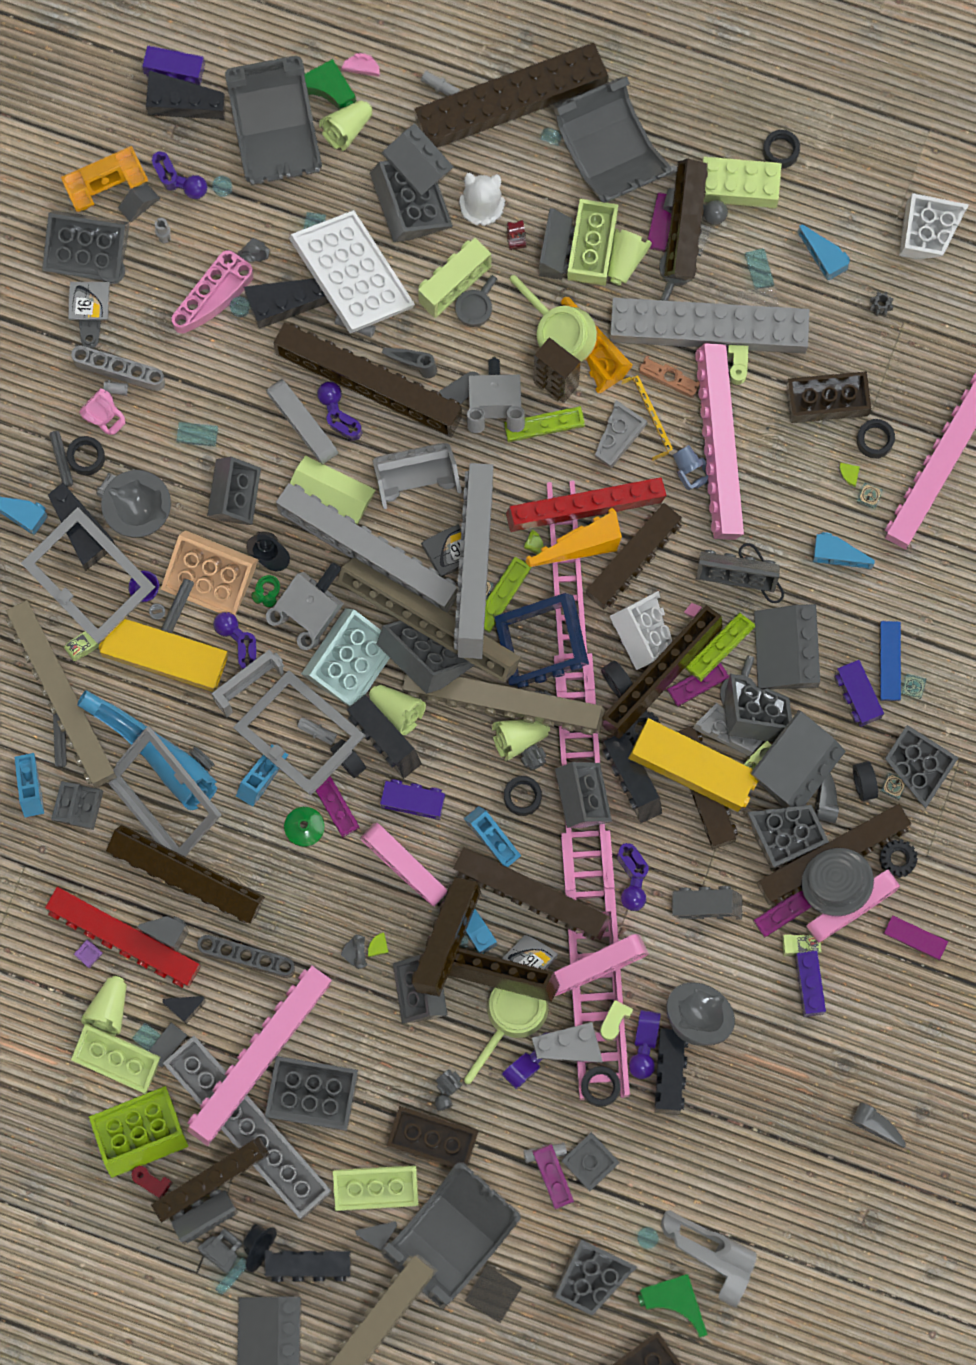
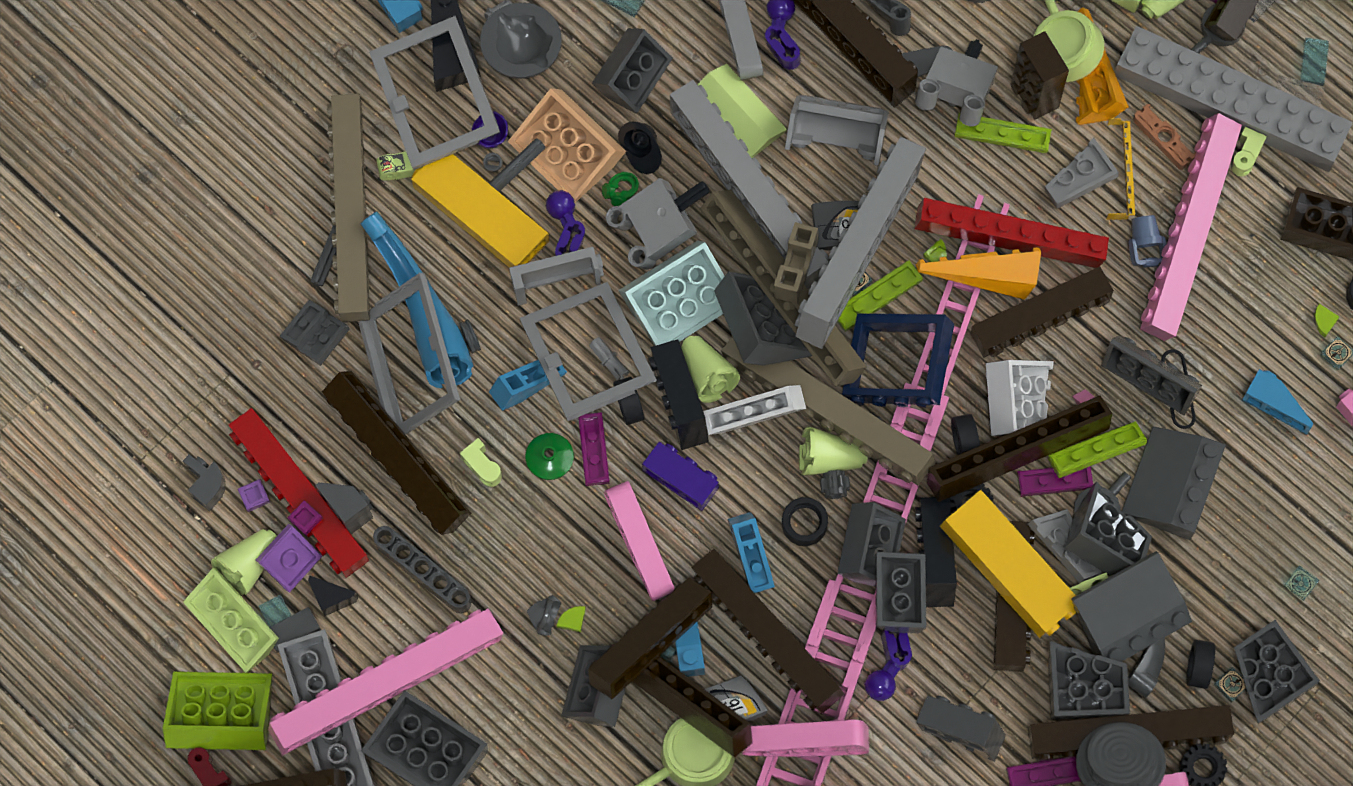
camera: 25 degrees right, 5 degrees down
(29, 785) = (271, 290): dark azure slope -> none
(51, 959) = (210, 482): none -> dark grey brick
(138, 955) = (304, 518): none -> magenta tile
(139, 991) = (289, 558): none -> medium lavender tile
(260, 858) = (486, 470): none -> yellowish green leg
(434, 599) = (797, 263): none -> dark tan arch
(449, 726) = (754, 409): none -> white brick
(621, 822) = (900, 592): none -> dark grey slope
(858, 693) = (1234, 564): dark purple brick -> none
(890, 661) = (1285, 544): blue tile -> none

